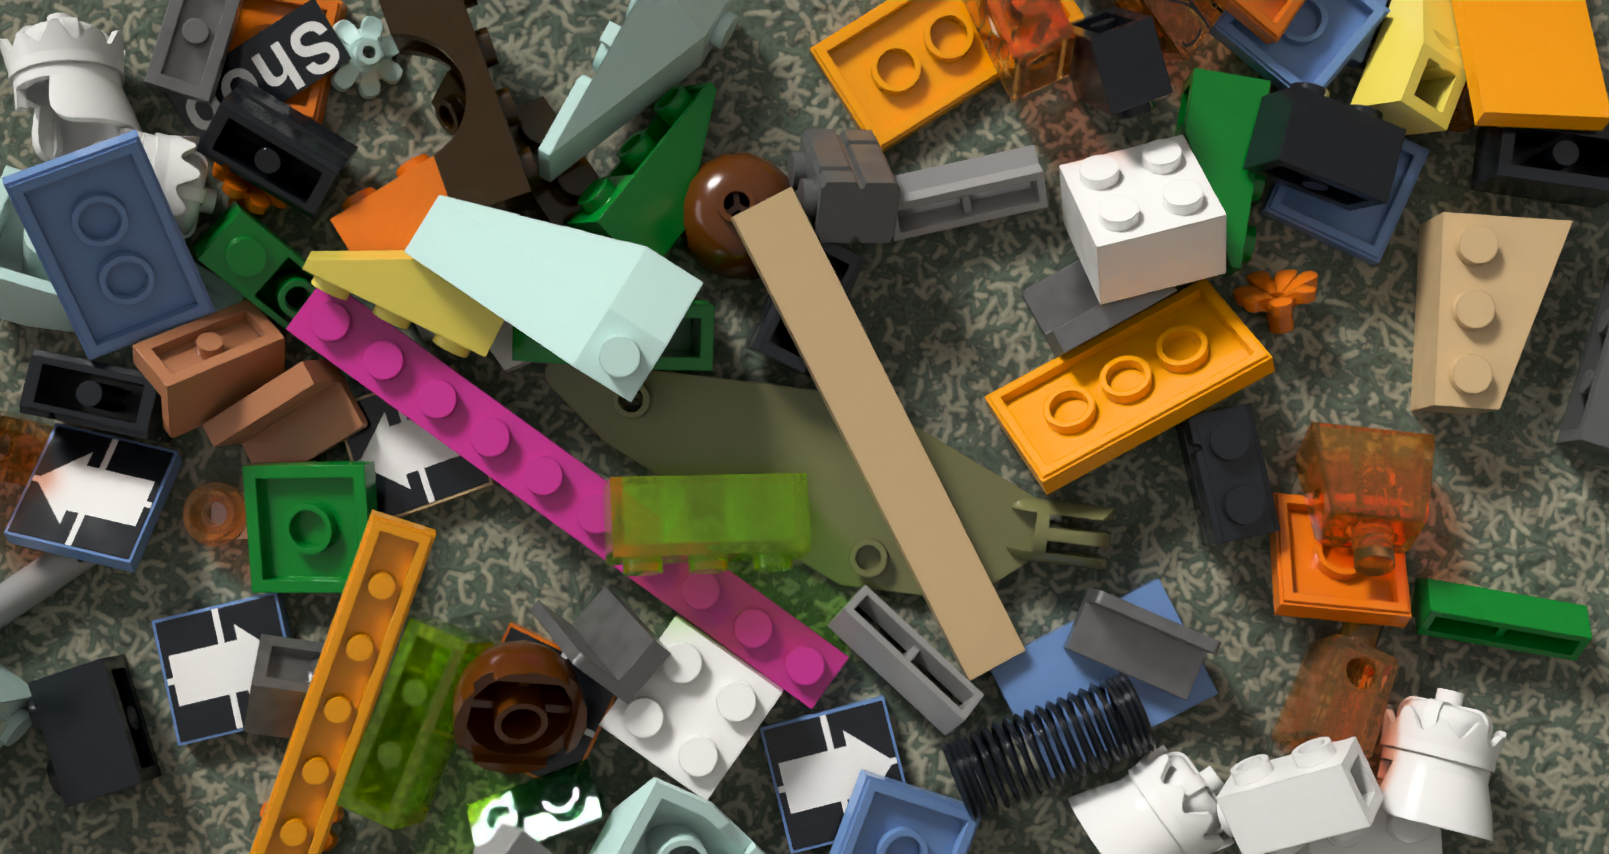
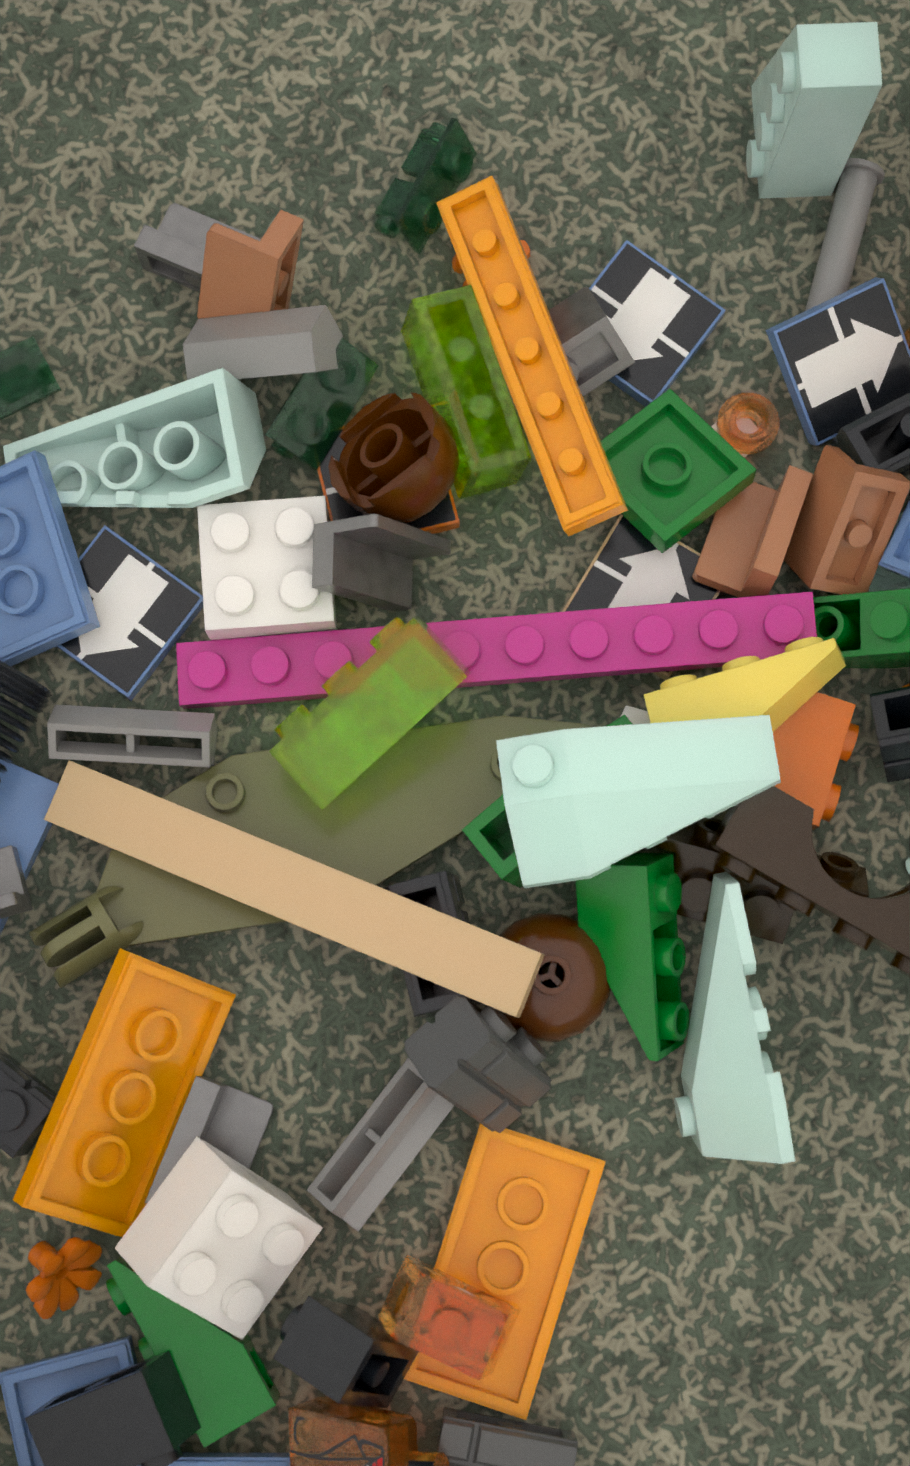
camera: 135 degrees right, 5 degrees down
(92, 730) = (696, 200): black brick -> none

